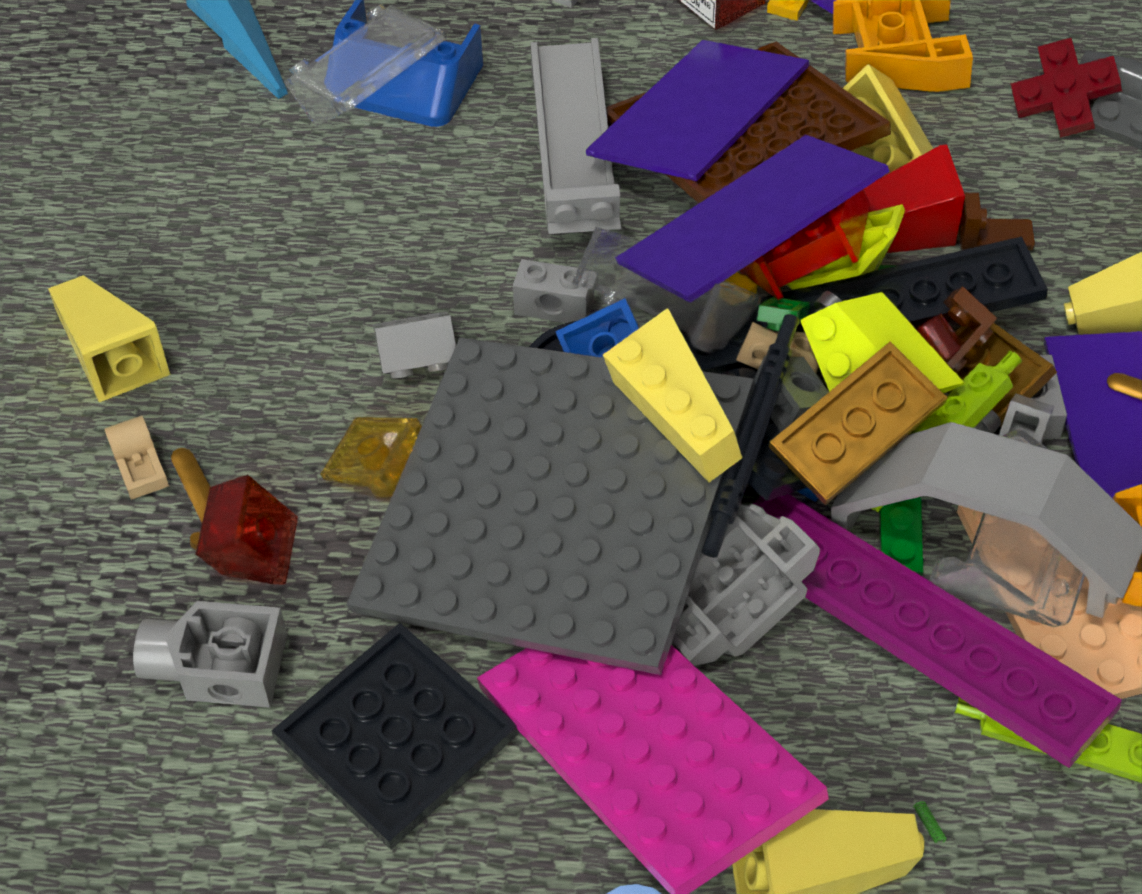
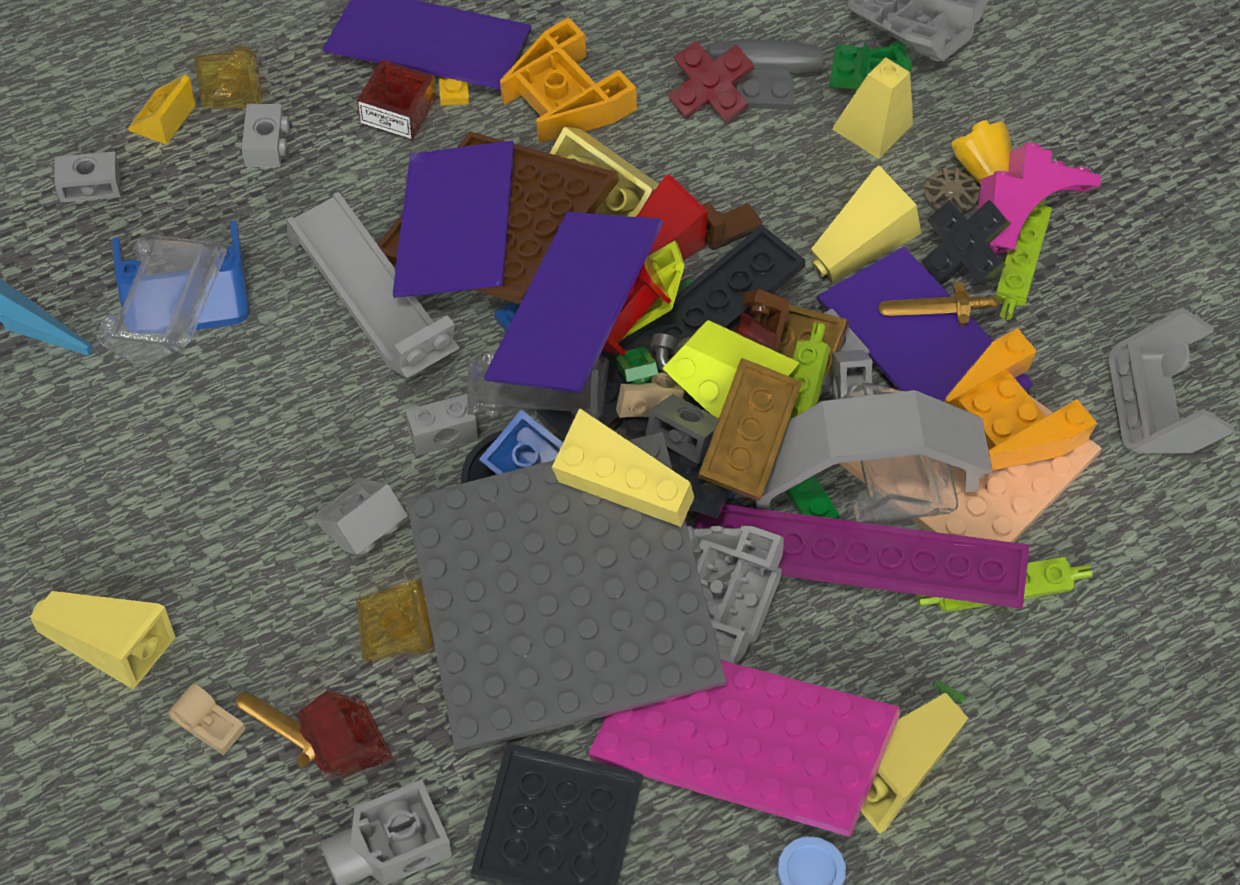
camera: 35 degrees left, 5 degrees up
(751, 435) = (681, 465): black axle -> none

